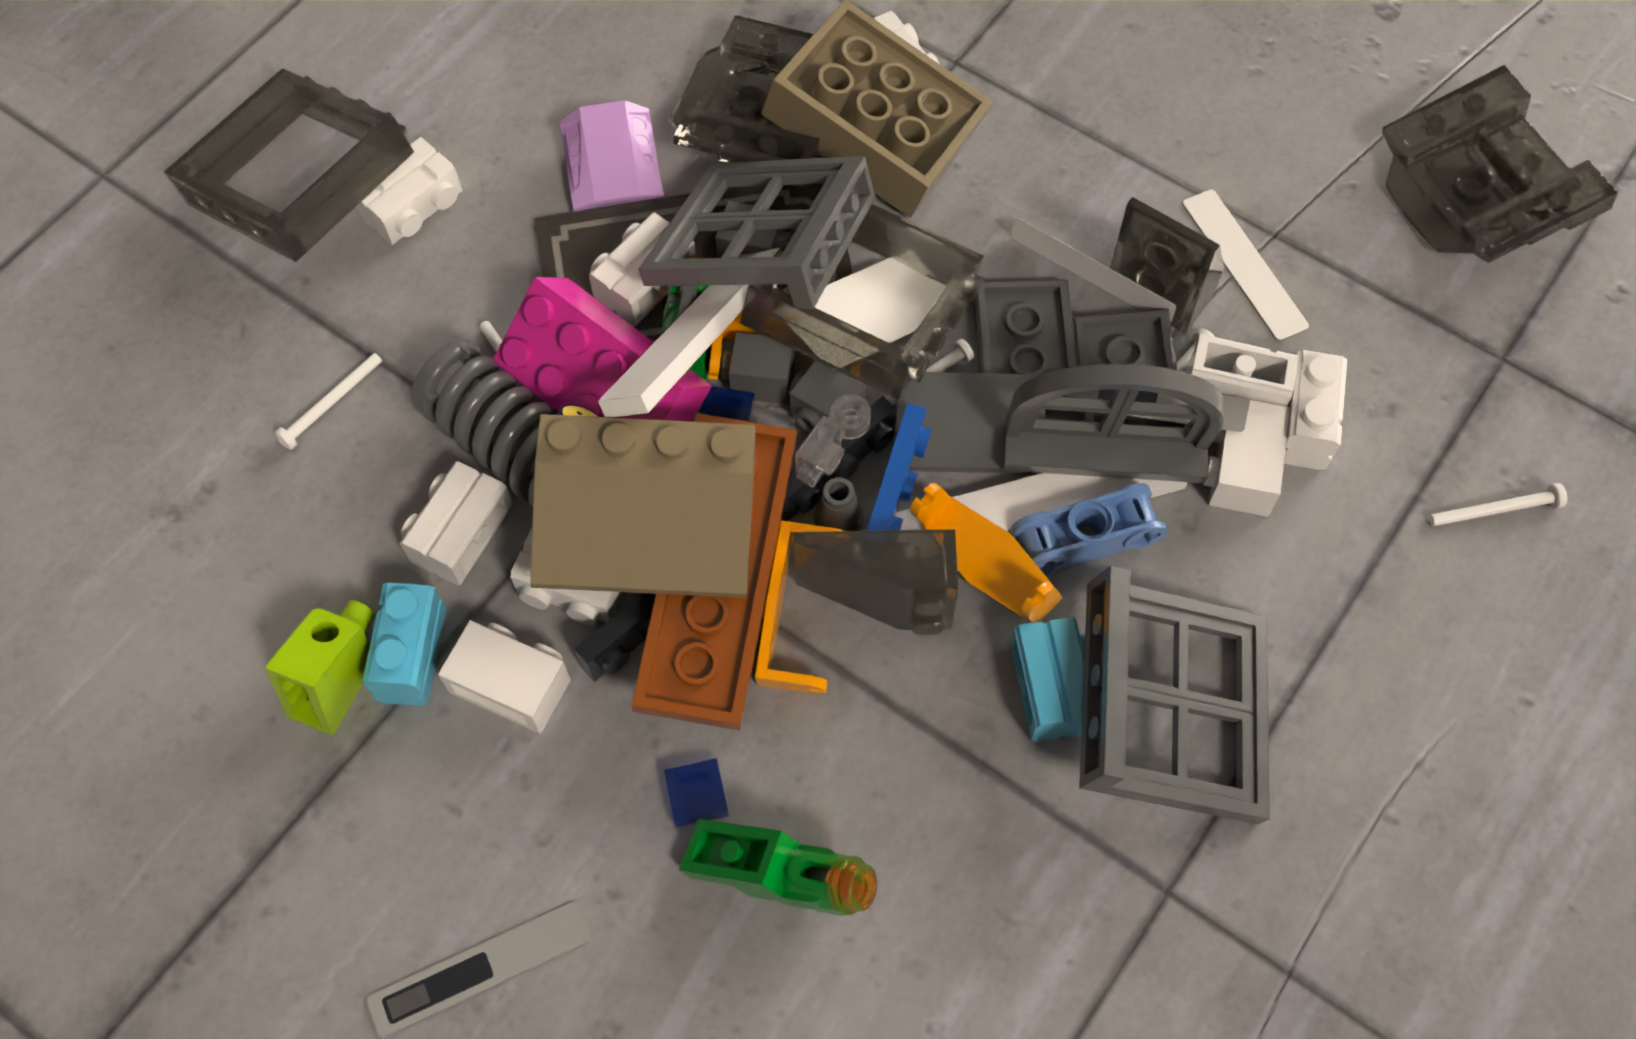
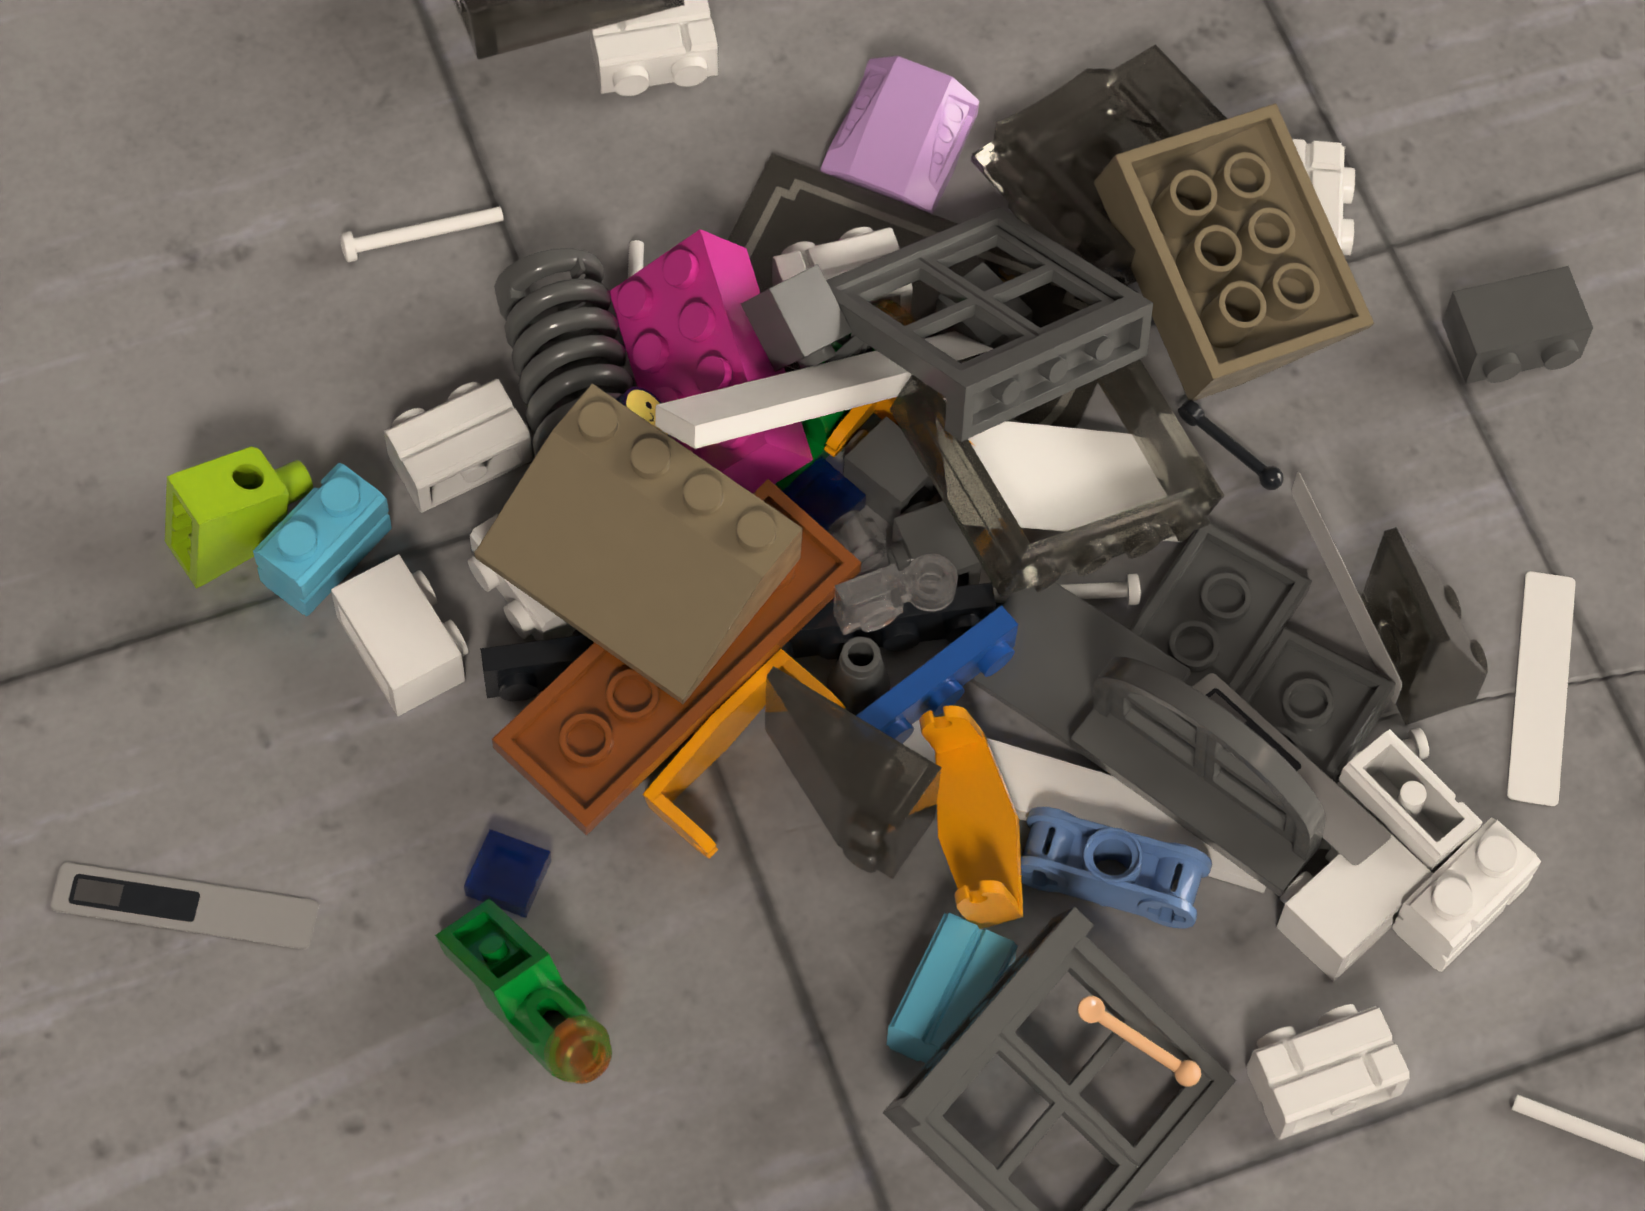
camera: 30 degrees right, 0 degrees up
(643, 297) = (797, 320): none -> brick
(992, 234) = (1270, 477): none -> black hinge
(1070, 60) = (1517, 325): none -> dark grey brick
(1159, 628) = (1092, 1010): none -> light nougat hinge
(1317, 574) = (1326, 1070): none -> white brick

